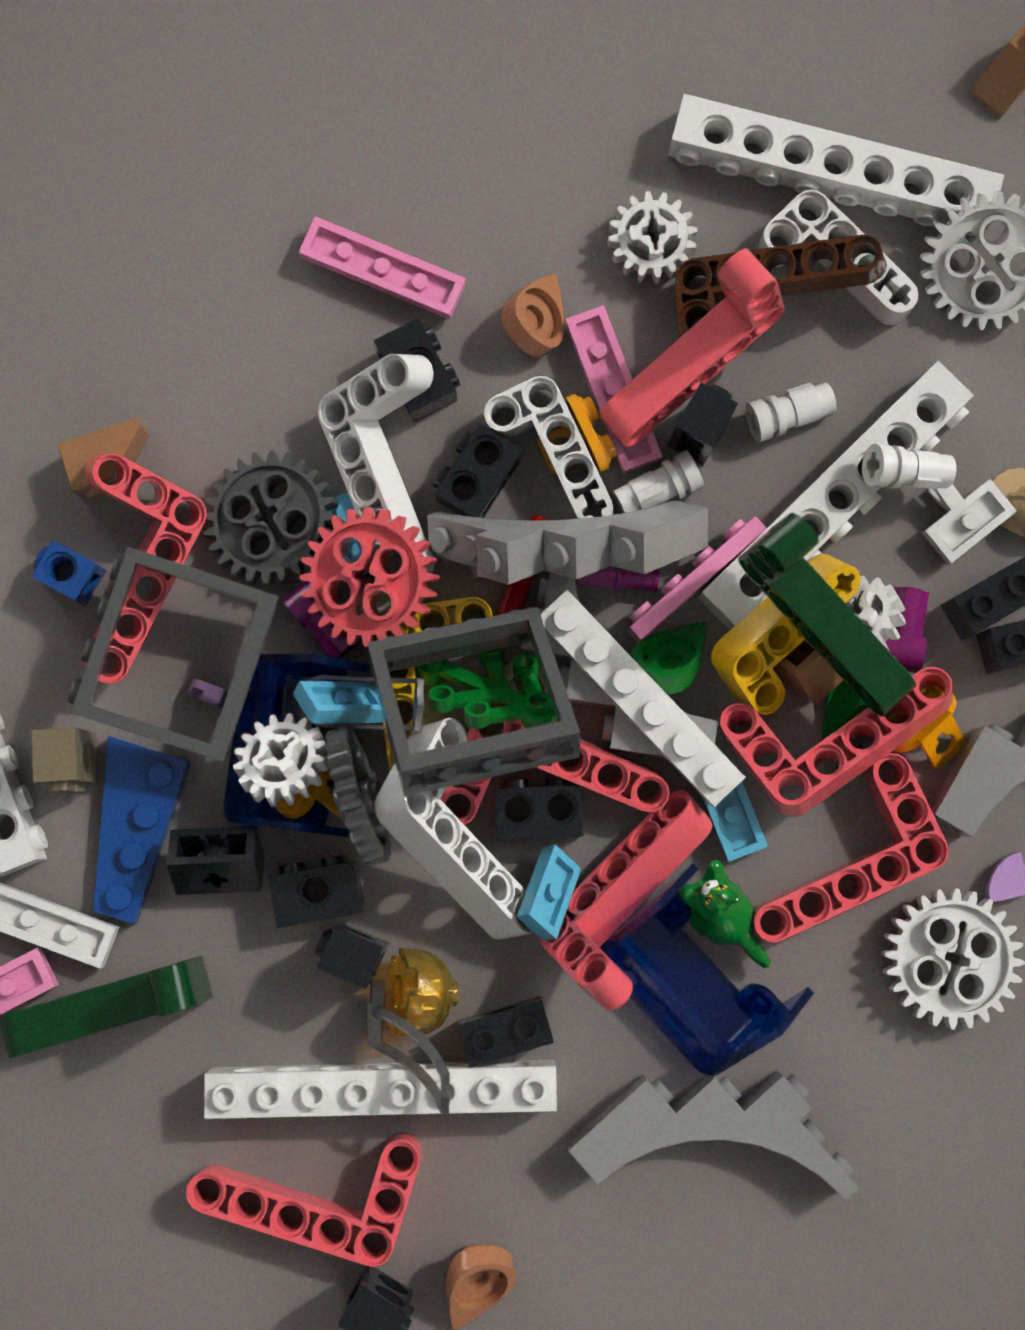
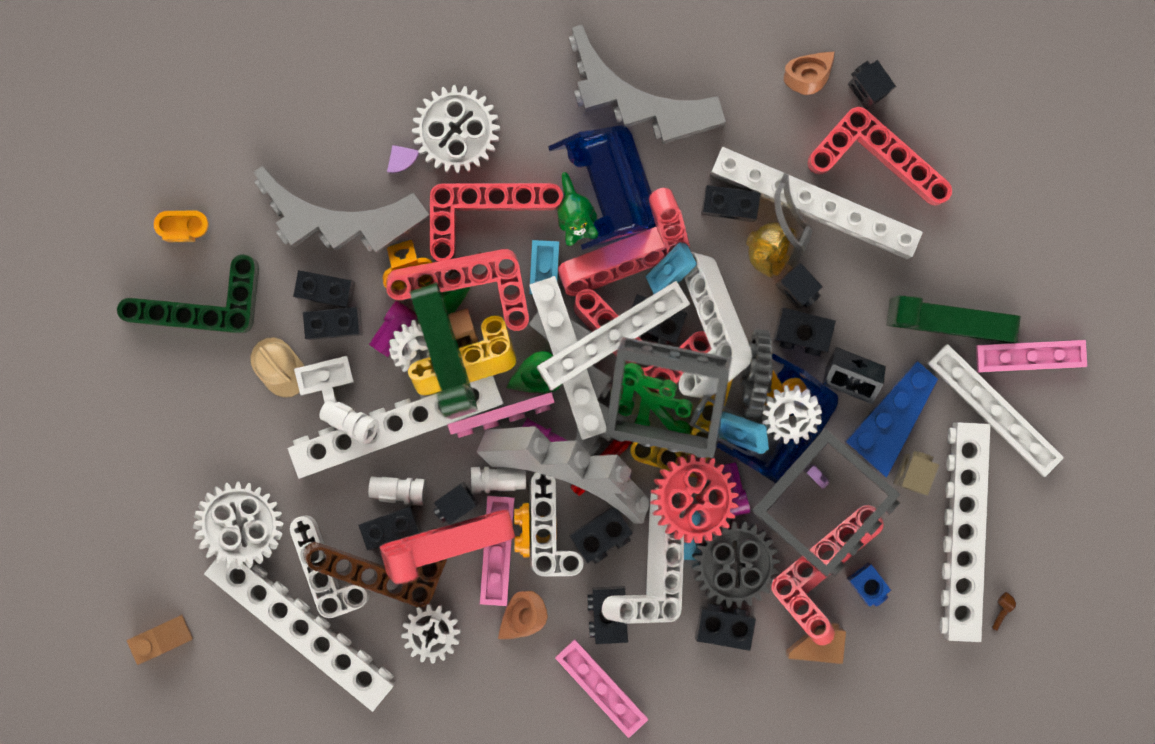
camera: 155 degrees left, 5 degrees up
(245, 412) = (723, 634): none -> black brick
(600, 746) = (608, 337): none -> white plate
(777, 352) = (389, 528): none -> black brick

